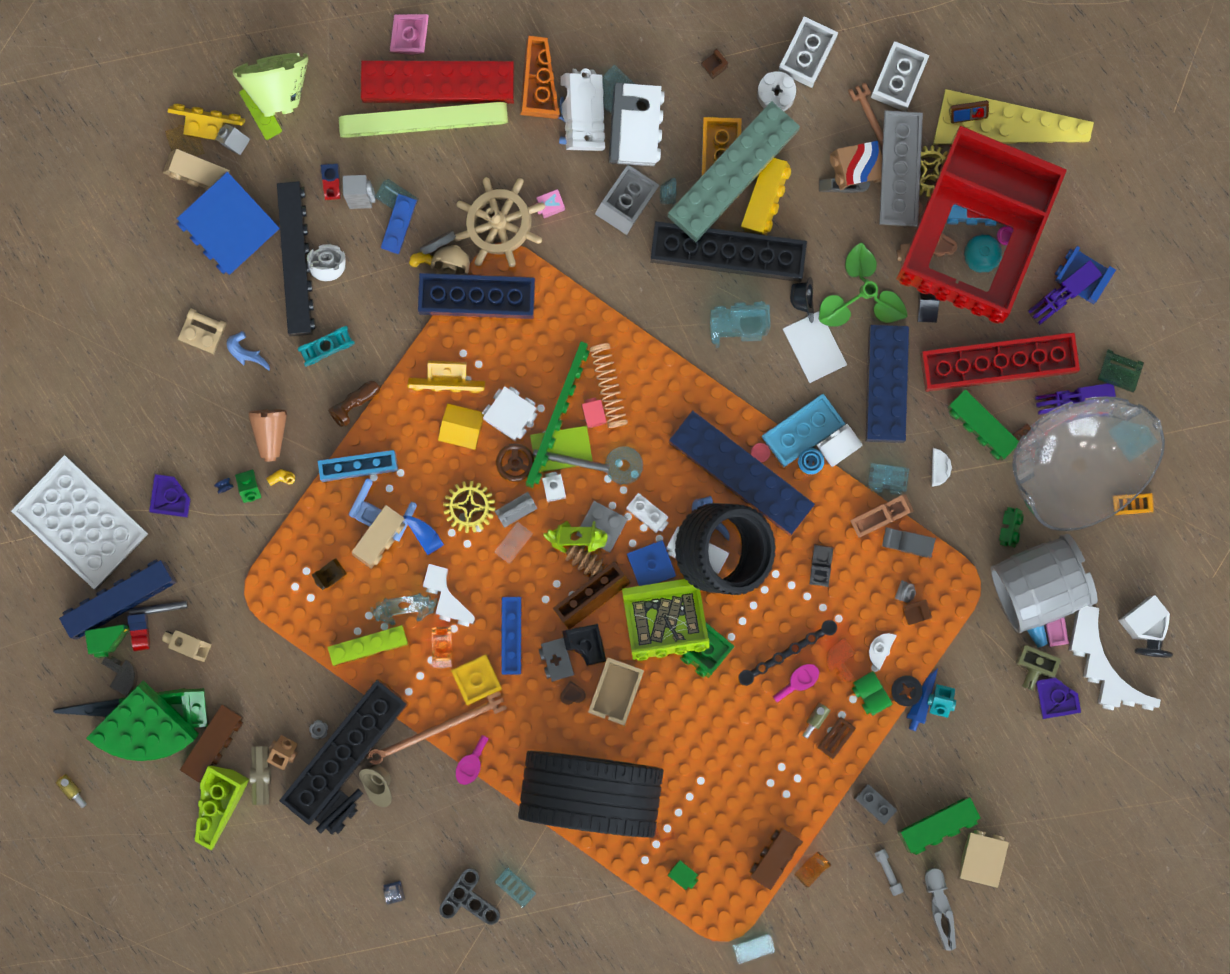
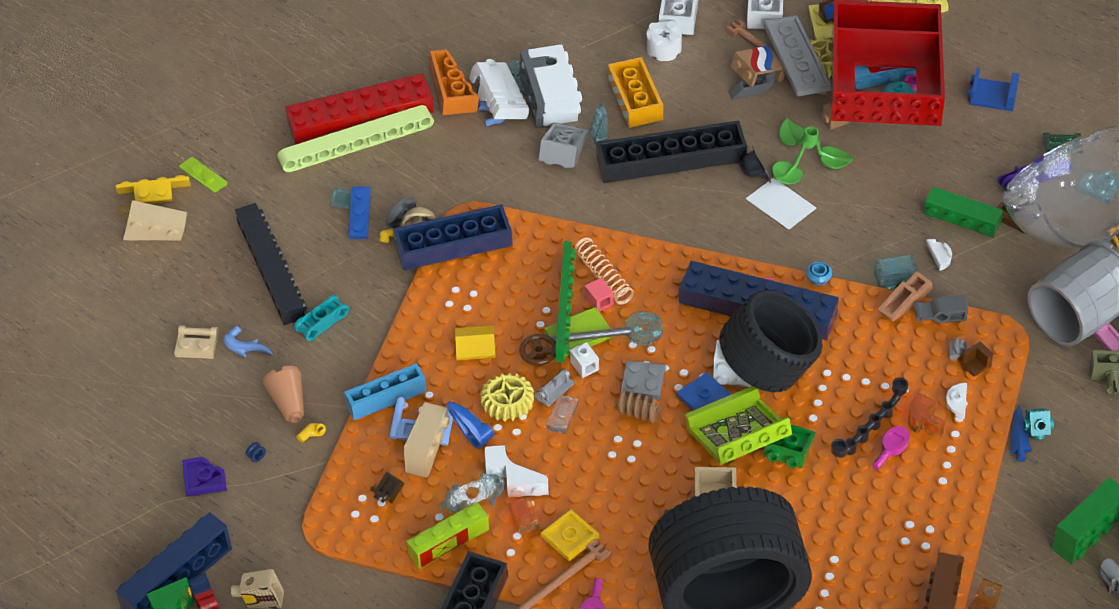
camera: 15 degrees left, 35 degrees down
(79, 522) = (115, 522): white plate -> none
(159, 608) = (227, 570): flat silver bar -> none
(227, 224) = (196, 248): blue panel -> none
(232, 139) = (182, 192): light grey brick -> none
(248, 486) = (281, 446): green bracket -> none
(274, 82) = (209, 135): yellowish green cone -> none
(326, 262) = (302, 255): white cylinder -> none
(331, 181) = (285, 199): leg -> none
(357, 398) = (356, 355): reddish brown piece -> none
(358, 192) = (314, 184): light grey brick -> none
(409, 34) = (322, 84): bright pink slope -> none
(446, 376) = (445, 304): yellow bracket -> none
(499, 221) = (453, 184): tan piece -> none
(510, 413) = (518, 314): white brick -> none
(511, 635) = (590, 489): blue plate -> none
(552, 202) = (495, 164): bright pink brick -> none
(557, 648) = (645, 494): dark grey brick -> none
(586, 642) = (668, 470): black tile -> none
(591, 537) = (637, 377): lime piece -> none
(591, 595) = (656, 429): reddish brown brick -> none
(648, 513) = (683, 354): white brick -> none
(715, 64) = (603, 38): reddish brown panel -> none
(733, 171) = (650, 86): sand green brick -> none
(741, 321) = (707, 190): clear light blue piece -> none
(765, 197) = (687, 102): yellow brick -> none
(803, 430) = (792, 263): medium azure tile -> none
(816, 719) = (924, 470): olive piece -> none
(821, 565) = (867, 351): black slope -> none
(839, 445) = (840, 255): white brick -> none
(846, 724) = (947, 495): reddish brown tile -> none
(872, 694) = (968, 433): green brick -> none
(875, 804) = (1018, 526): dark grey brick -> none
(882, 857) = (1076, 594): light grey bar -> none
(887, 383) = (860, 206): dark blue brick -> none
(915, 694) = (999, 418): black gear -> none
(927, 308) = (868, 146): black slope -> none
(1000, 362) = (952, 162): red brick -> none
(1012, 534) = (1028, 272): green hinge -> none
(1038, 636) = (1094, 343): dark azure cone -> none
(1072, 286) = (987, 100): dark purple arm -> none

